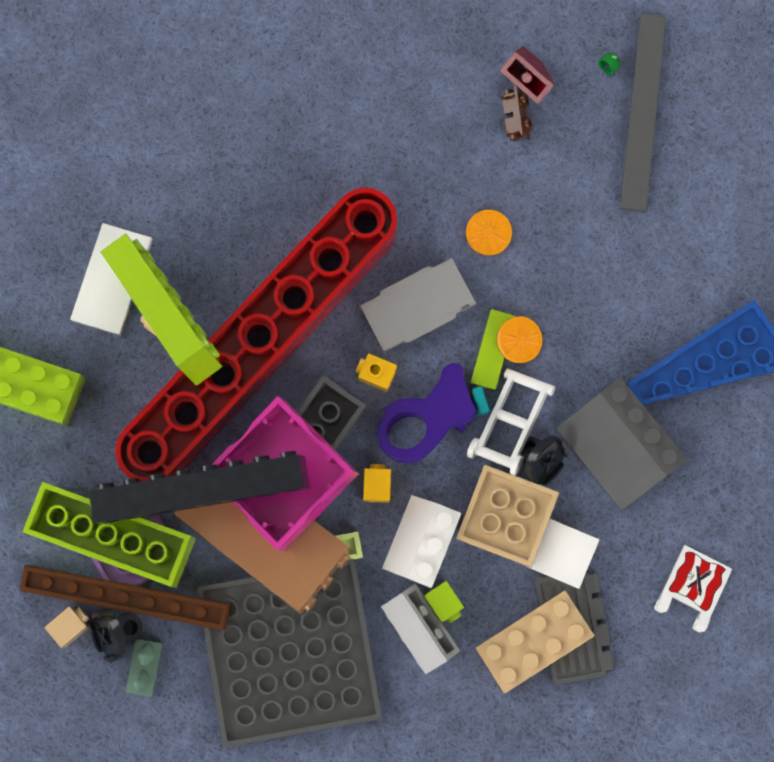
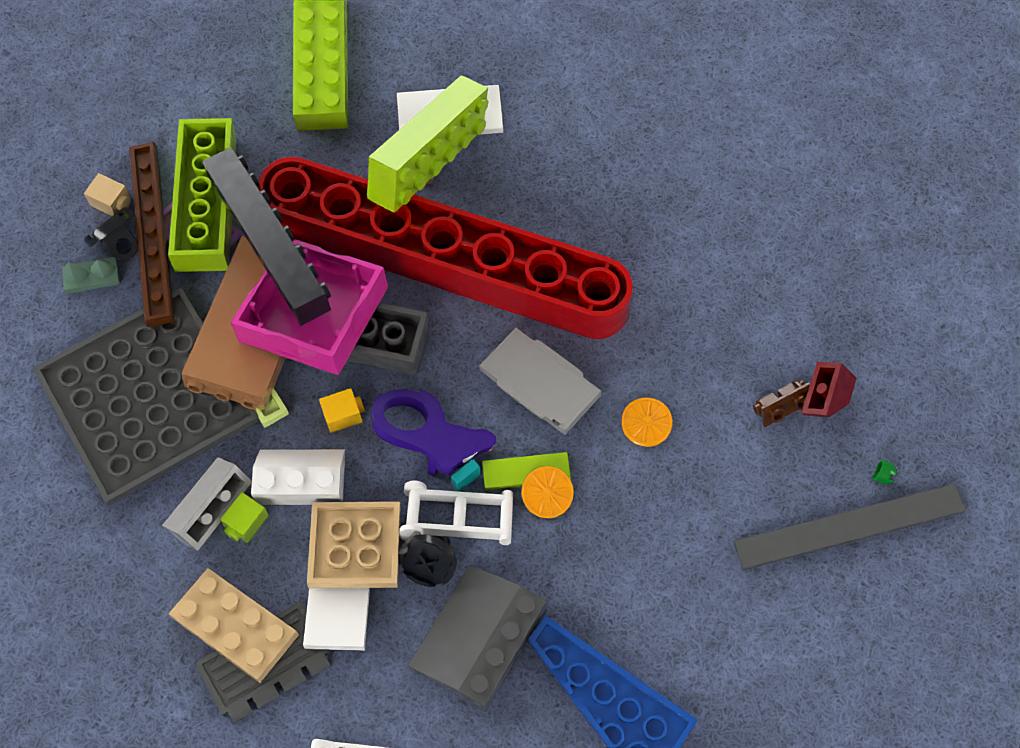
camera: 70 degrees right, 15 degrees down
(376, 372) = (454, 368): yellow brick -> none

